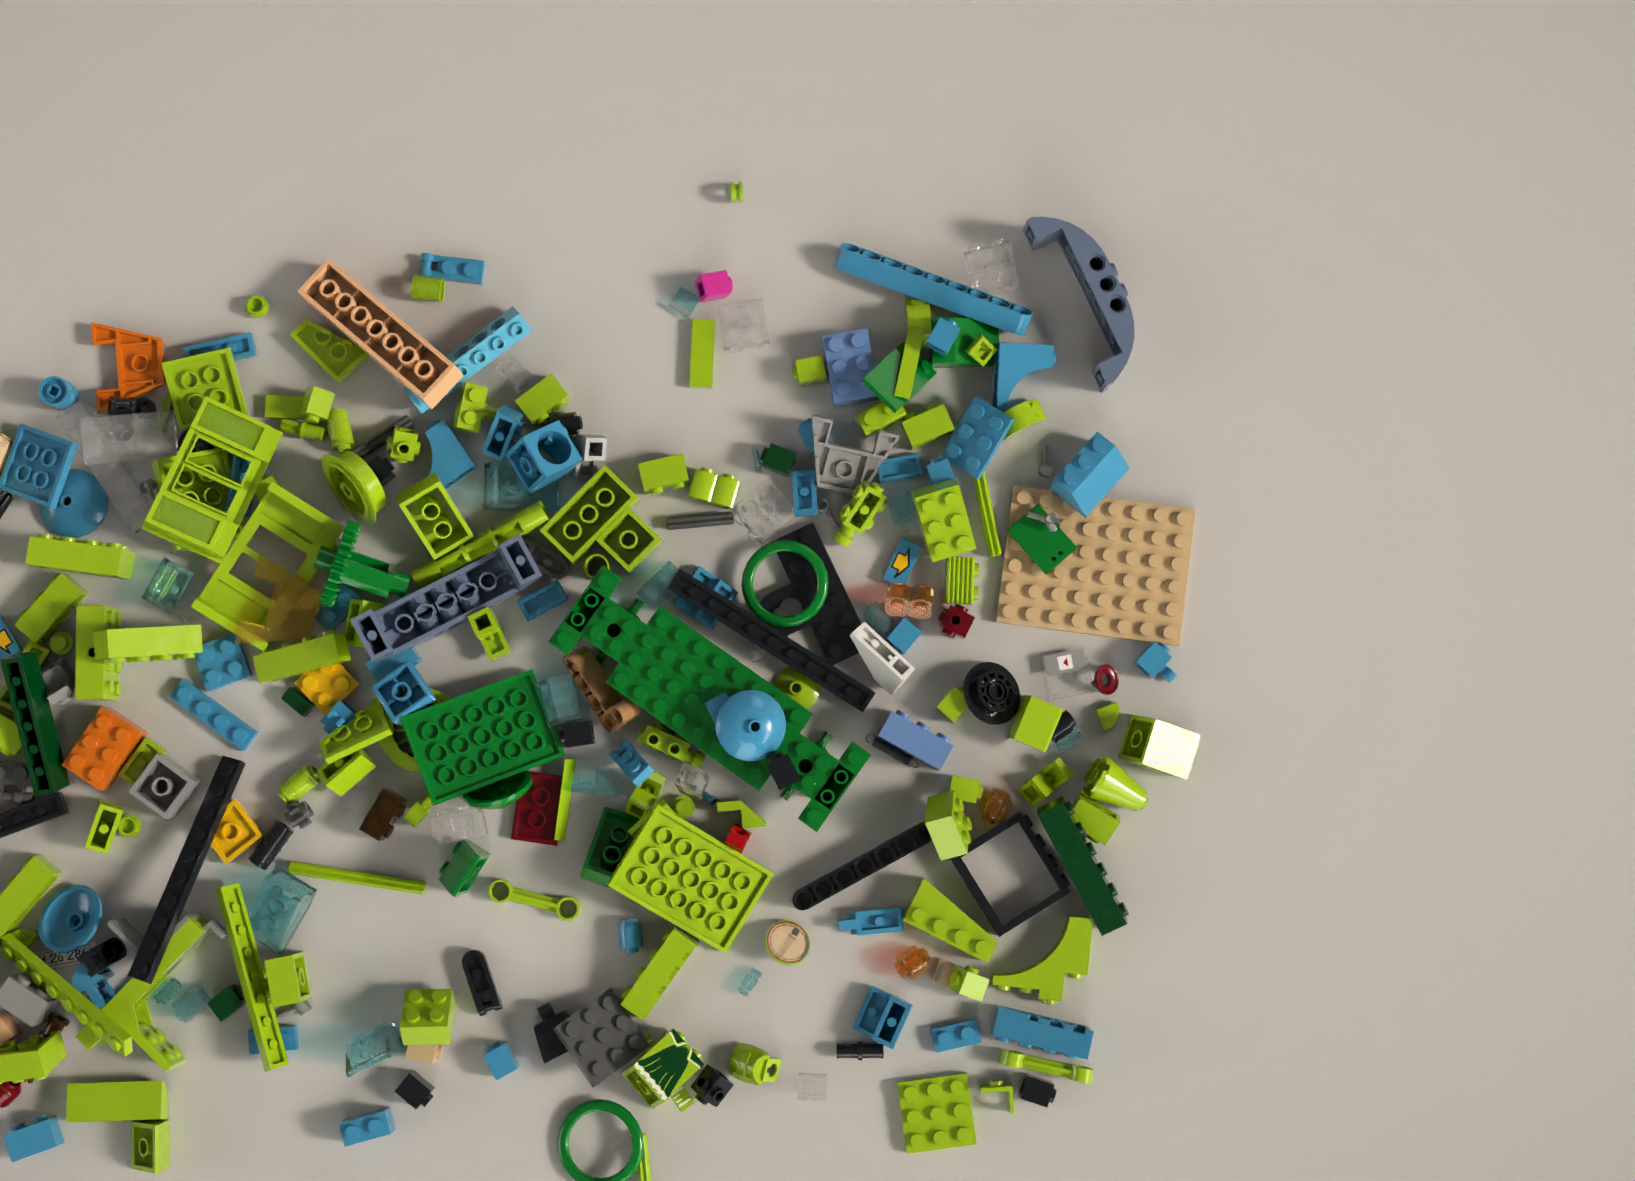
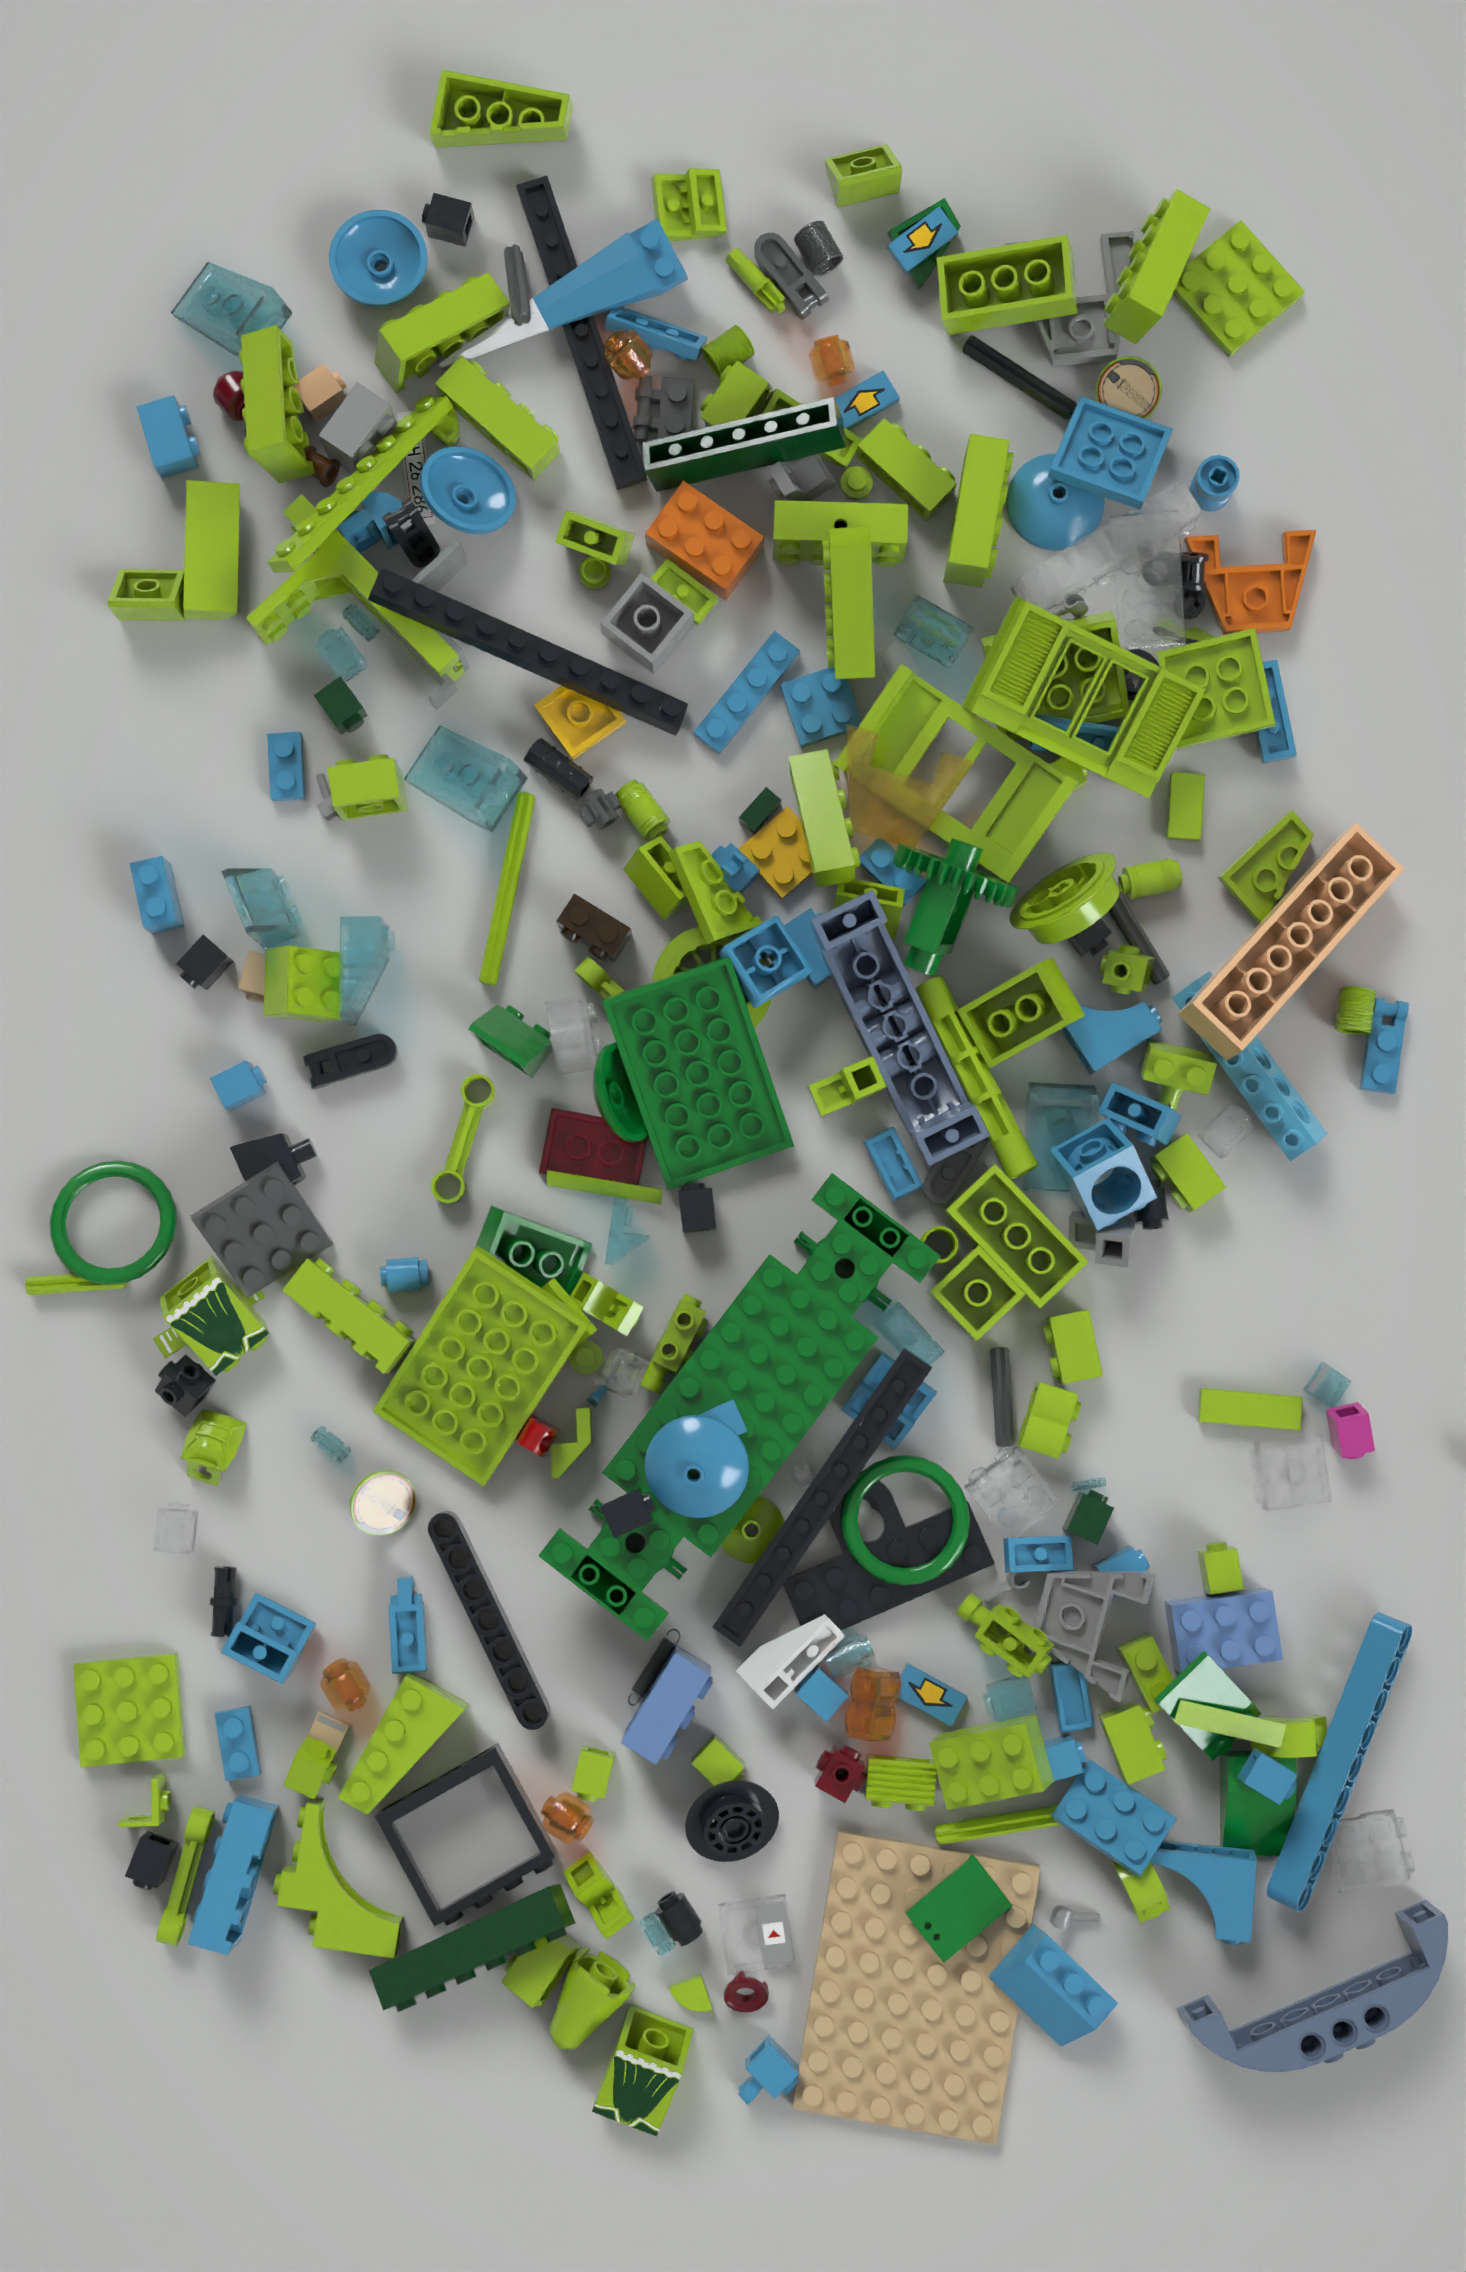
camera: 90 degrees right, 0 degrees up
(251, 976) = (373, 738): lime plate -> none
(257, 306) = (1334, 765): lime plate -> none
(304, 429) = (1152, 827): lime axle -> none
(316, 404) = (1188, 846): lime brick -> none
(408, 975) = (363, 958): none -> clear light blue slope
(559, 699) = (748, 1184): clear light blue brick -> none
(601, 697) = (751, 1243): medium nougat beam -> none
(632, 762) = (651, 1287): dark azure plate -> none
(948, 825) = (540, 1749): lime brick -> none
(981, 350) = (1245, 1831): lime tile -> none
(1035, 723) = (685, 1884): lime slope -> none
(1049, 520) = (986, 1922): light grey hand -> none

